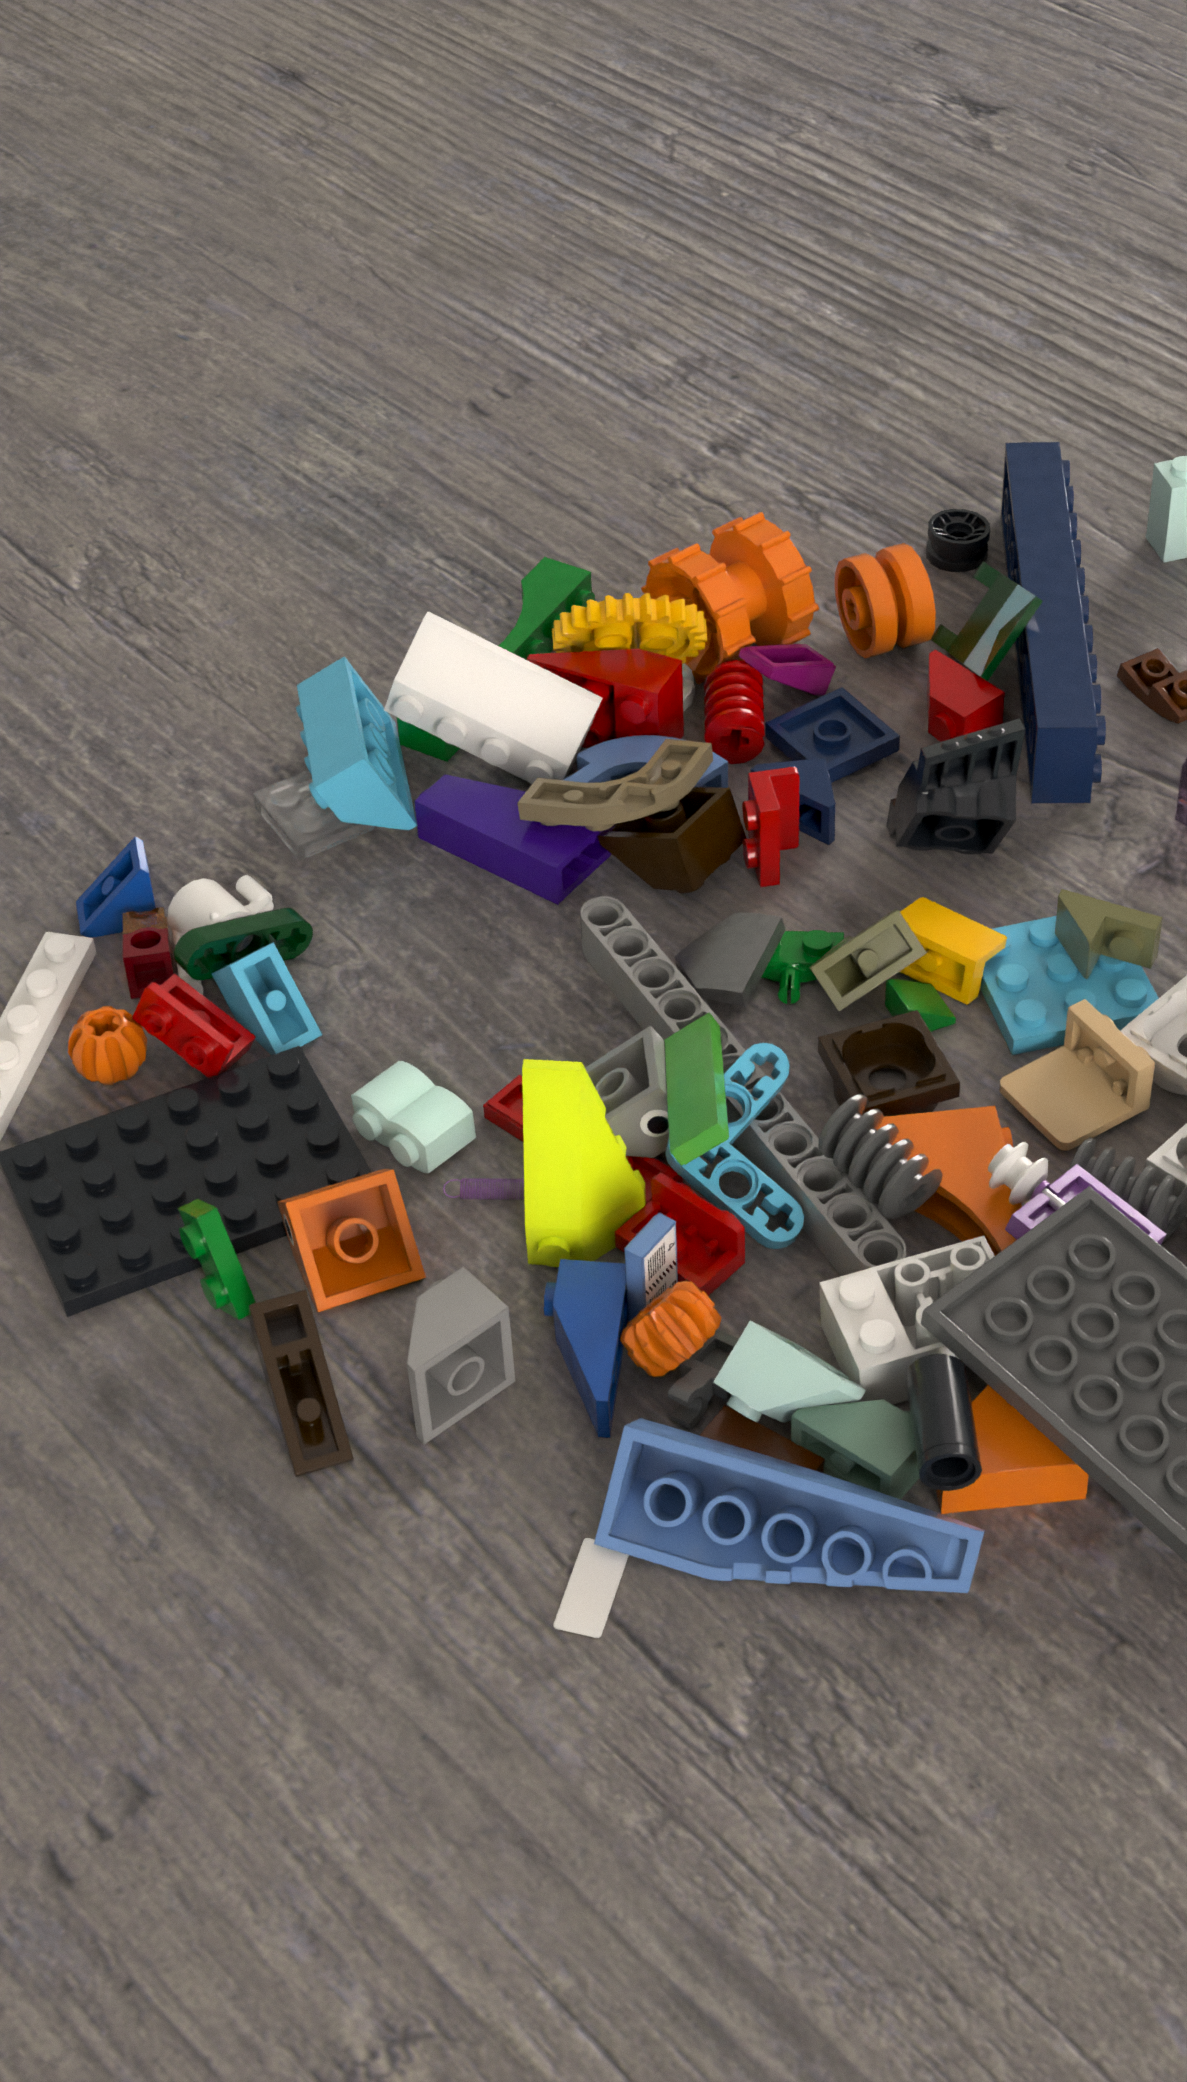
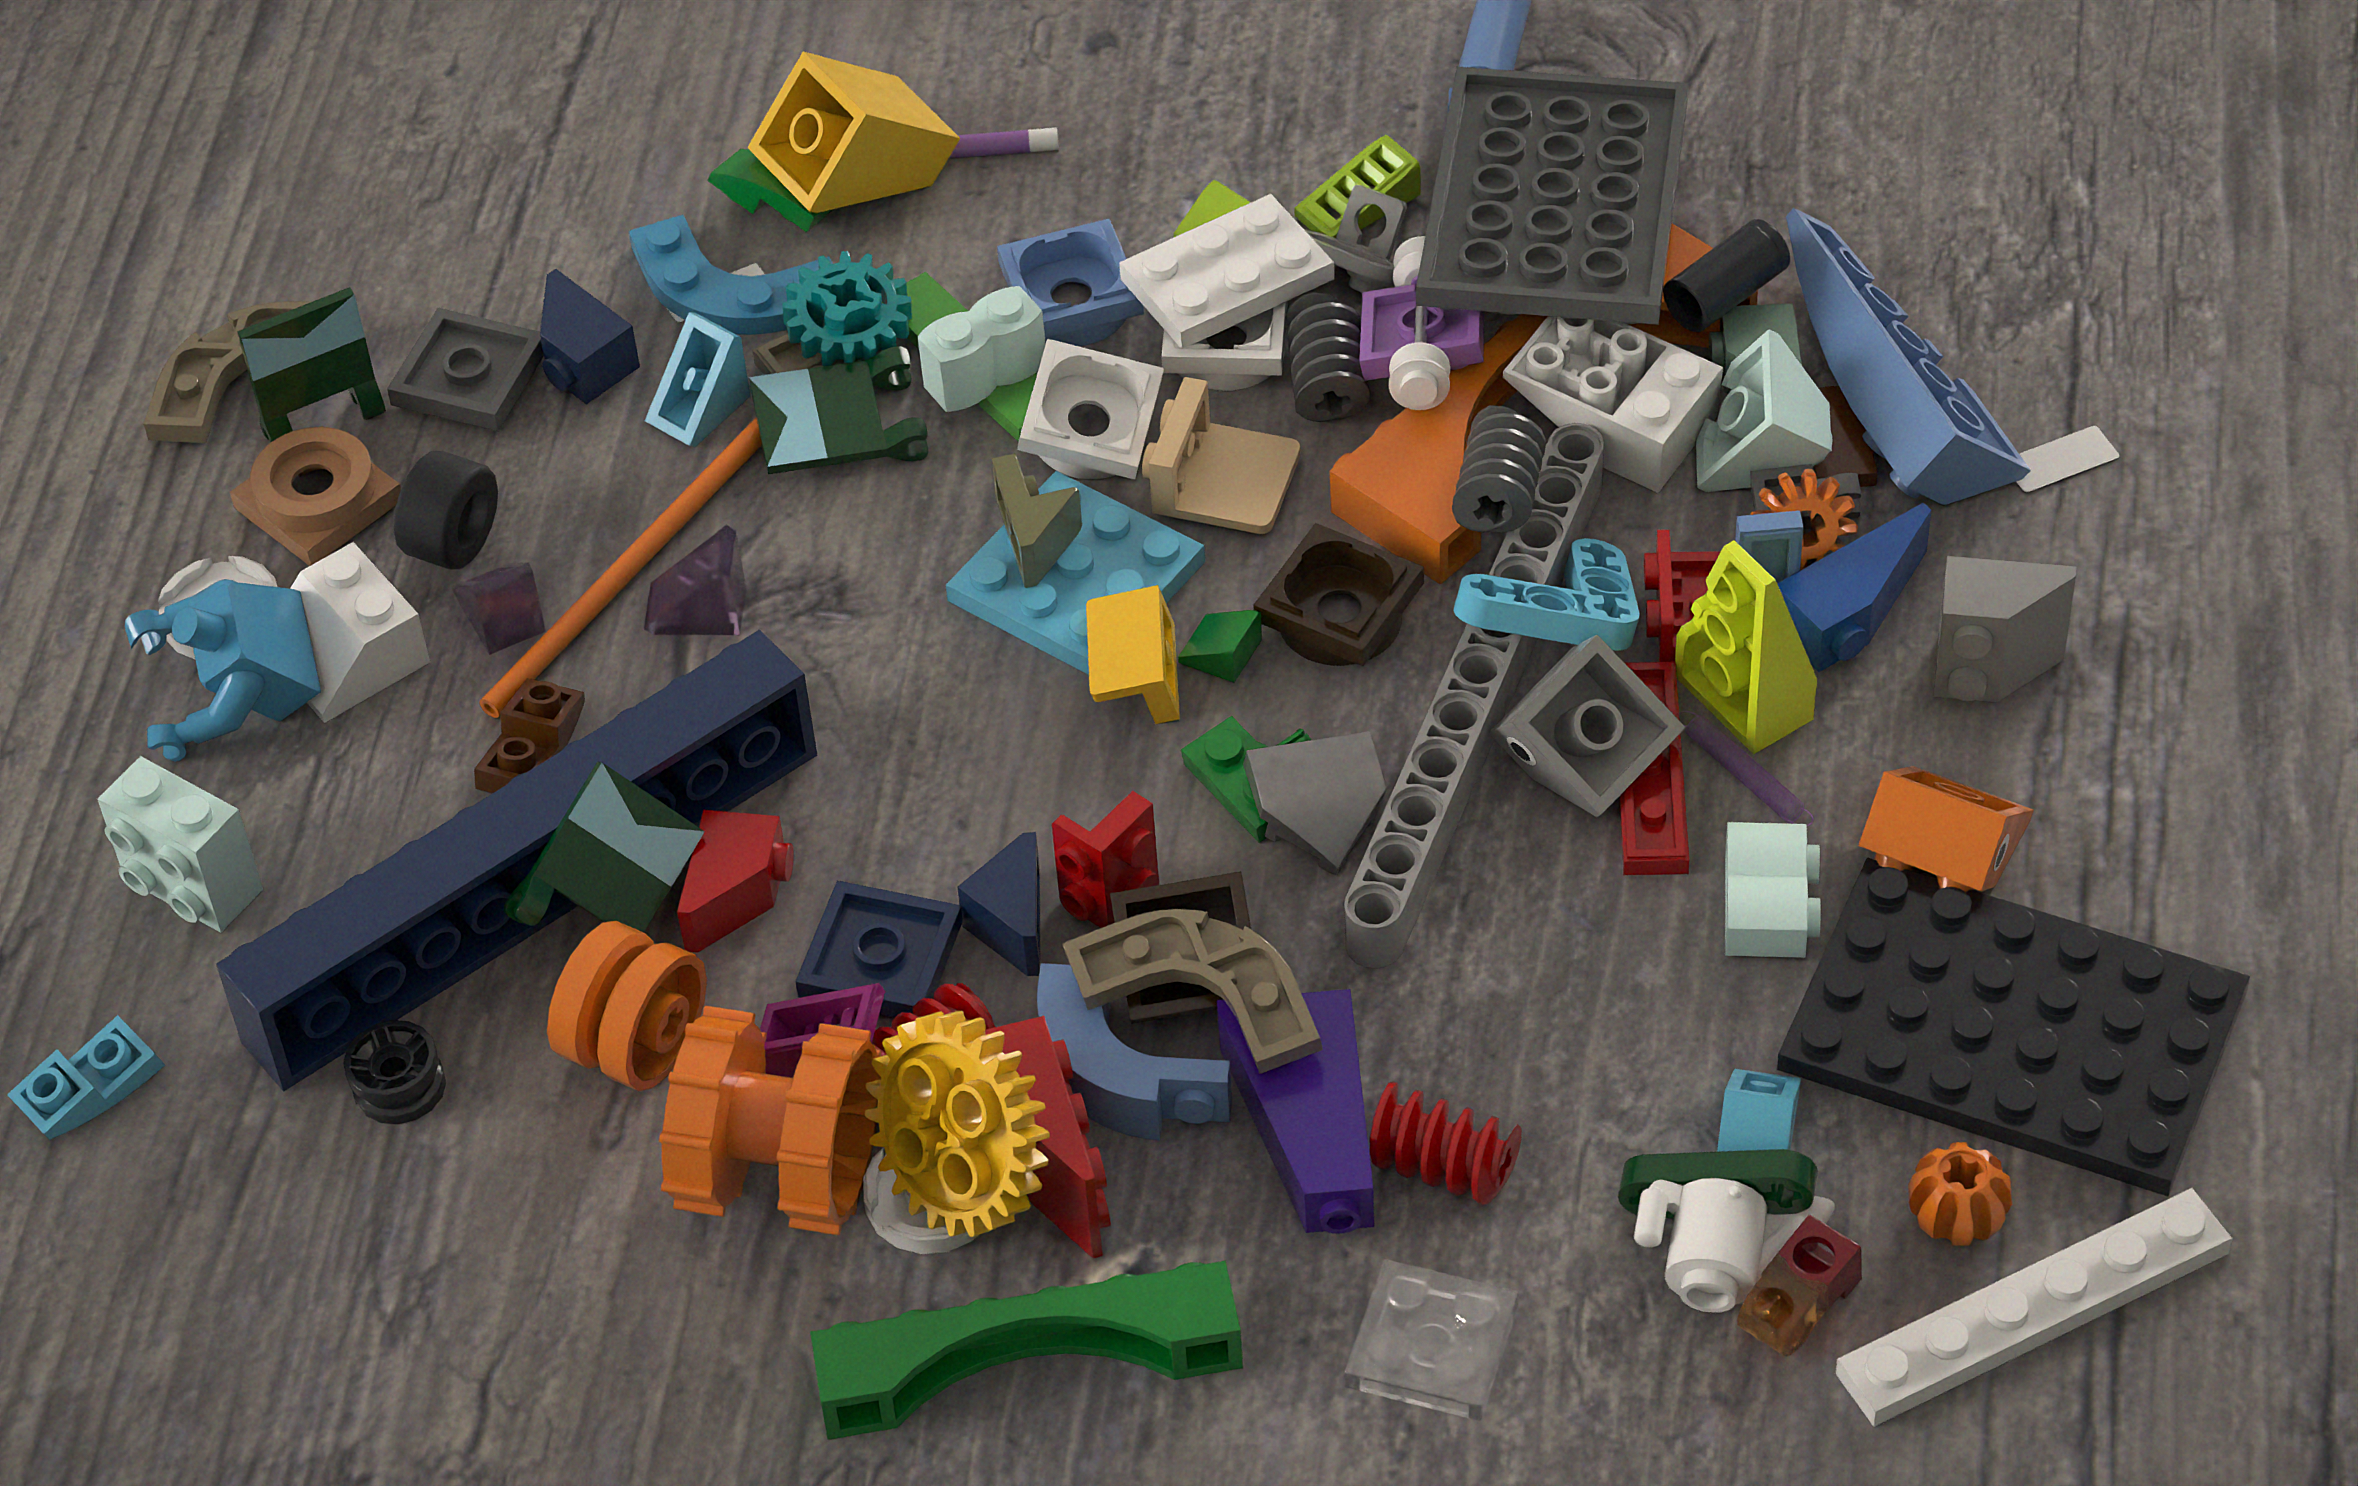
camera: 130 degrees left, 5 degrees up
(118, 889) = (1749, 1391): blue slope -> none
(192, 1026) = (1869, 1128): red bracket -> none
(210, 1244) = (2104, 856): green plate -> none
(299, 1382) = (2120, 744): dark brown slope -> none
(353, 750) = (1355, 1306): medium azure slope -> none
(418, 858) = (1441, 1147): none -> red piece
(491, 702) = (1185, 1197): white slope -> none
(695, 1090) = (1566, 614): bright green tile -> none
(867, 959) = (1243, 685): olive slope -> none
(960, 792) = (928, 728): black slope -> none
(1081, 445) = (76, 1090): none -> medium azure slope

